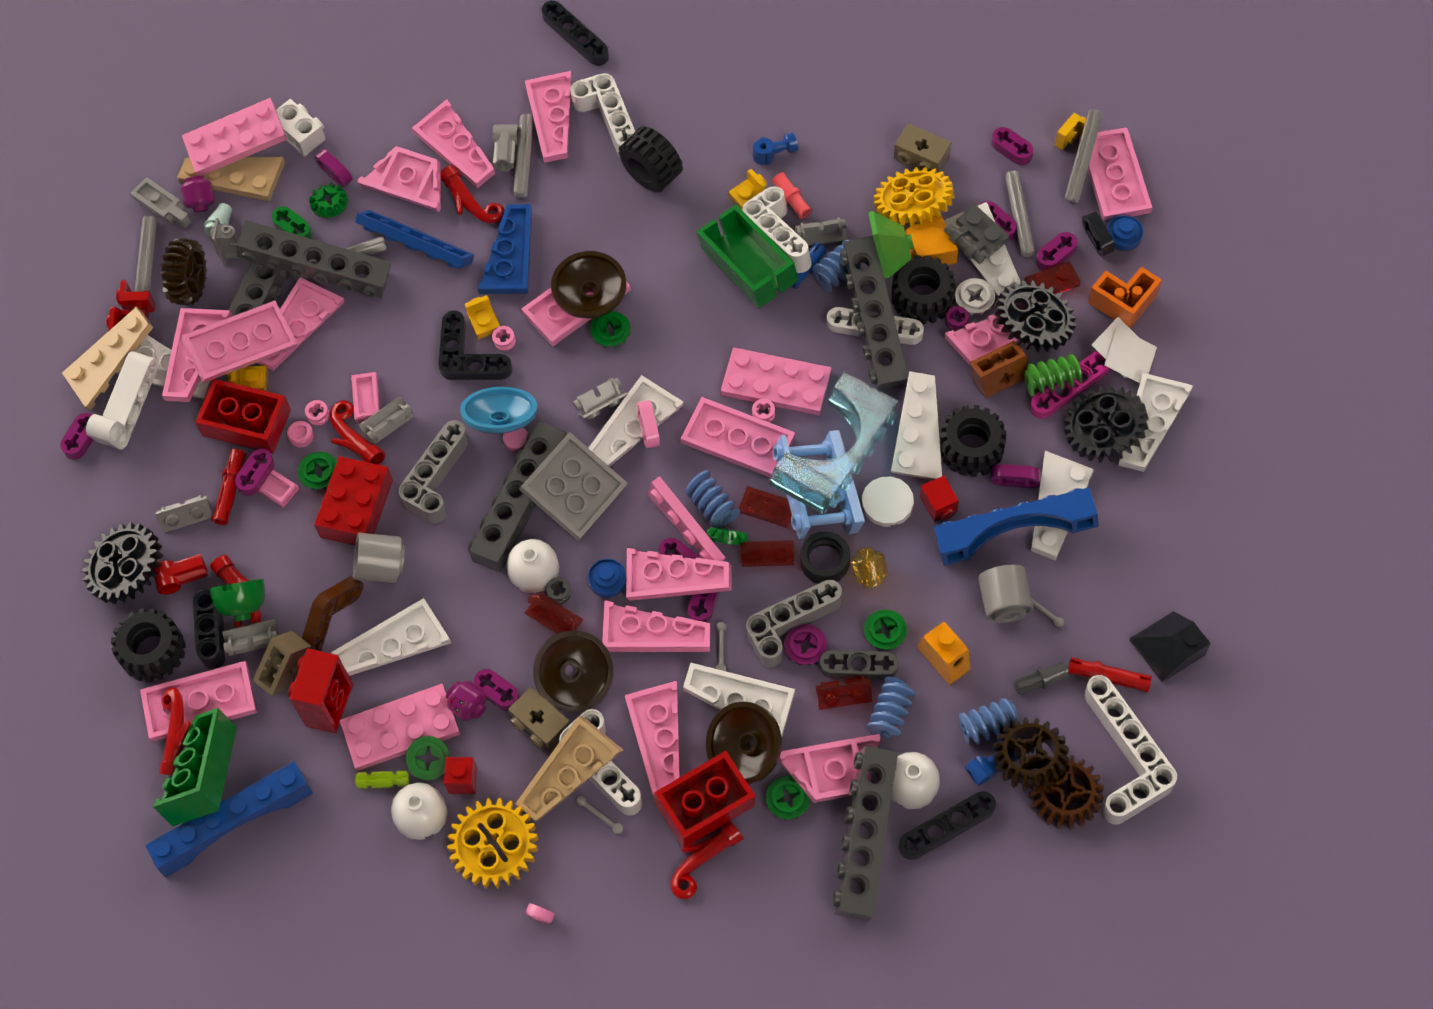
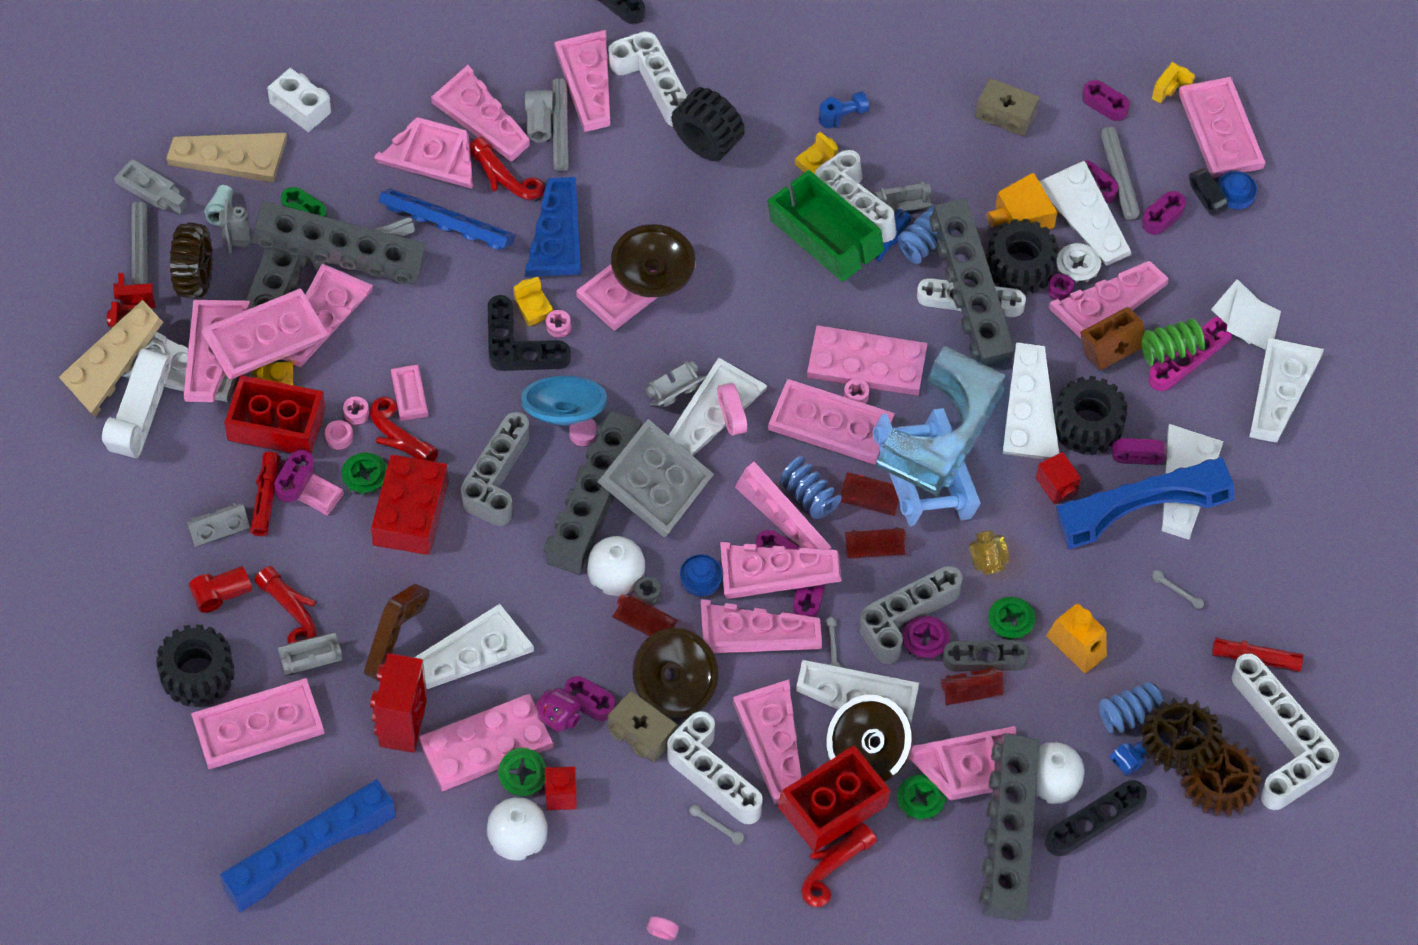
camera: 10 degrees left, 5 degrees down
(77, 435) = (81, 443): magenta beam -> none
(122, 563) = (162, 563): black gear -> none
(173, 702) = (239, 756): red plant -> none
(197, 193) = (193, 175): magenta head -> none
(199, 770) = (273, 793): green wedge -> none
(208, 640) = (258, 634): black beam -> none
(234, 137) = (231, 112): bright pink plate -> none
(239, 598) = (295, 609): green cylinder -> none
(280, 662) = (351, 676): dark tan brick -> none
(322, 208) = (339, 189): green gear -> none
(333, 168) = (345, 143): magenta beam -> none
(378, 558) = (445, 561): light grey piece -> none
(382, 779) = (472, 797): lime axle -> none
(386, 420) = (436, 415): light grey hinge -> none
(471, 857) = (624, 842): yellow gear -> none
(570, 765) = (682, 771): tan wing -> none
(618, 322) = (684, 302): green gear -> none
(727, 536) = (831, 525): green gear -> none
(792, 195) = (868, 160): coral pin -> none
(825, 539) = (941, 525): black tyre -> none
(887, 501) = (1001, 483): white tile -> none
(890, 707) = (1025, 698): medium blue piece -> none
(891, 243) = (985, 205): bright green slope -> none
(914, 196) = (1003, 157): yellow gear -> none
(981, 229) = (1079, 188): dark grey plate -> none
(1005, 593) = (1140, 573): light grey piece -> none
(1035, 316) = (1148, 280): black gear -> none
(1041, 678) = (1184, 661): dark grey axle -> none
(1061, 277) = (1161, 244): clear red plate -> none
(1083, 156) = (1186, 108): light grey axle -> none
(1087, 437) = (1244, 377): black gear -> none
(1125, 299) = (1243, 260): orange brick -> none
(1171, 645) = (1321, 621): black slope -> none

